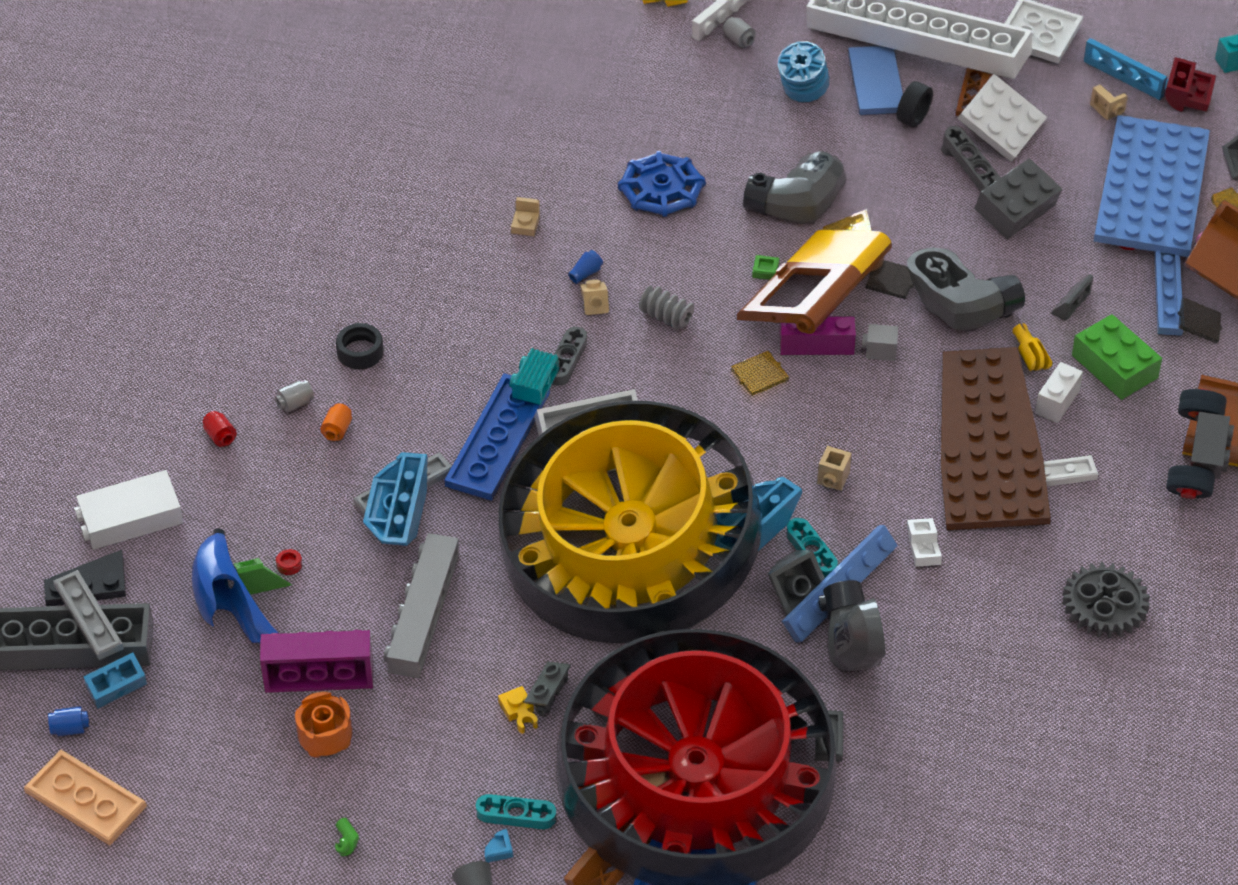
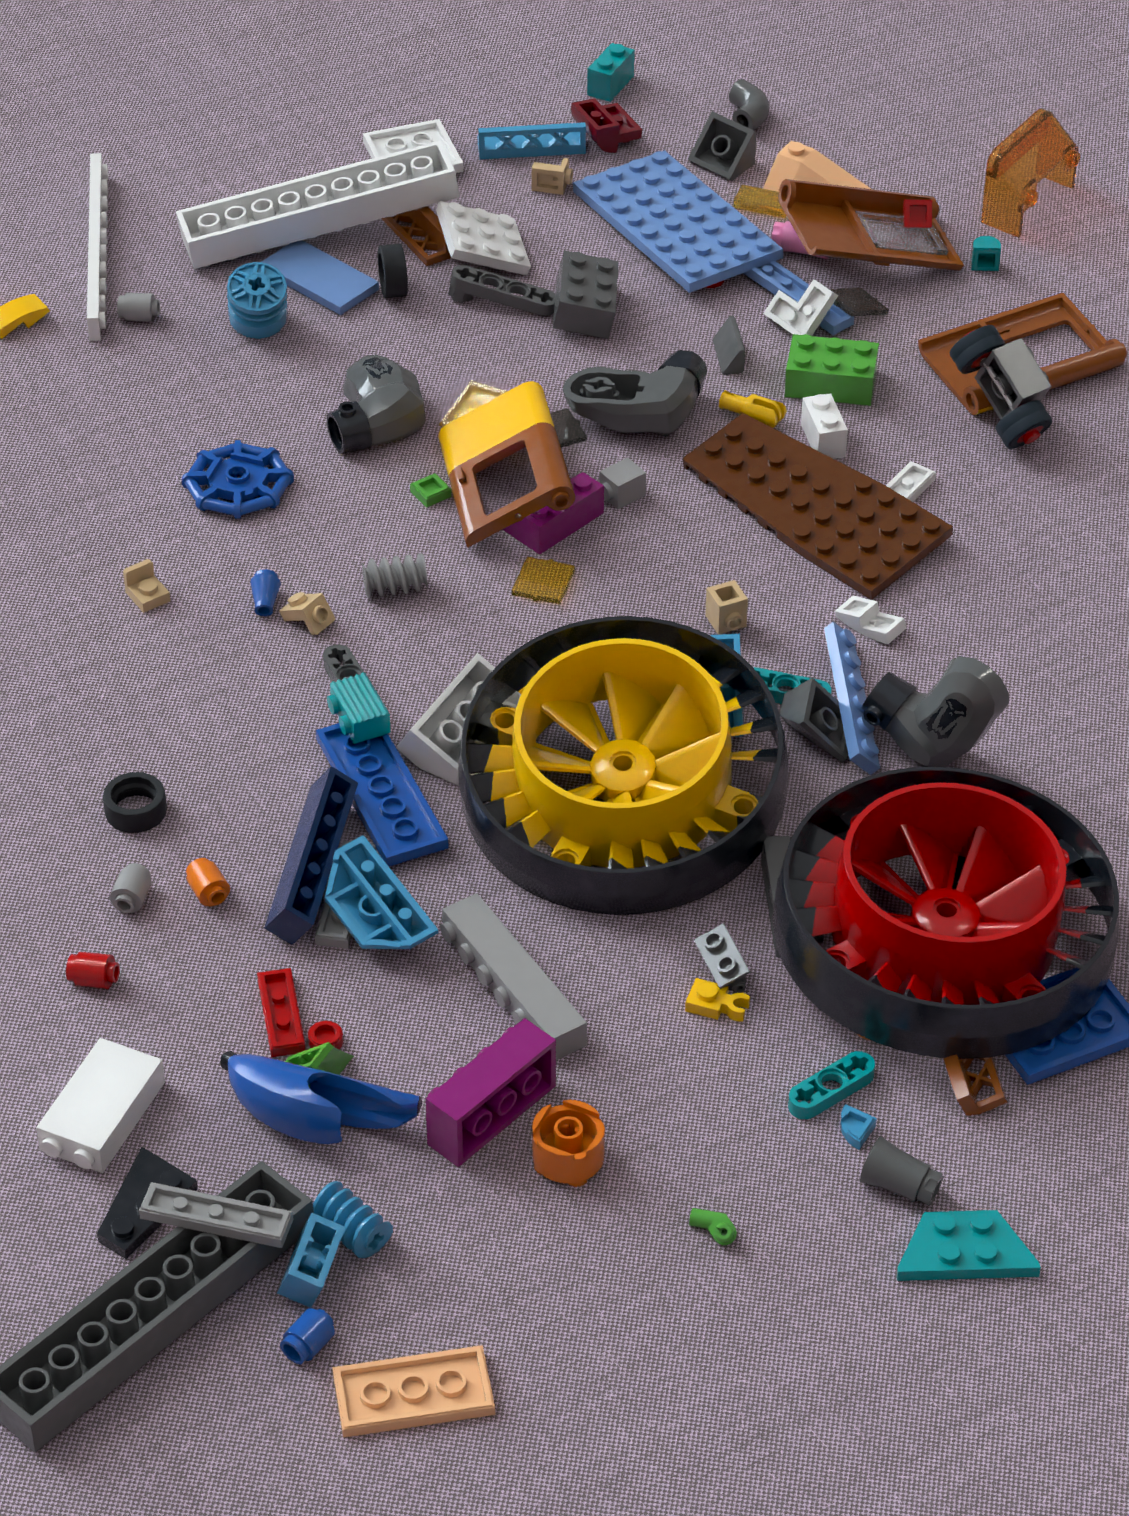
camera: 45 degrees left, 5 degrees down
(164, 675) = (364, 1231): none -> dark azure piece
(285, 529) = (281, 1012): none -> red tile
(415, 440) = (311, 856): none -> dark blue brick
(1105, 600) = (1051, 557): dark grey gear -> none
(1147, 303) = (805, 315): none -> white plate

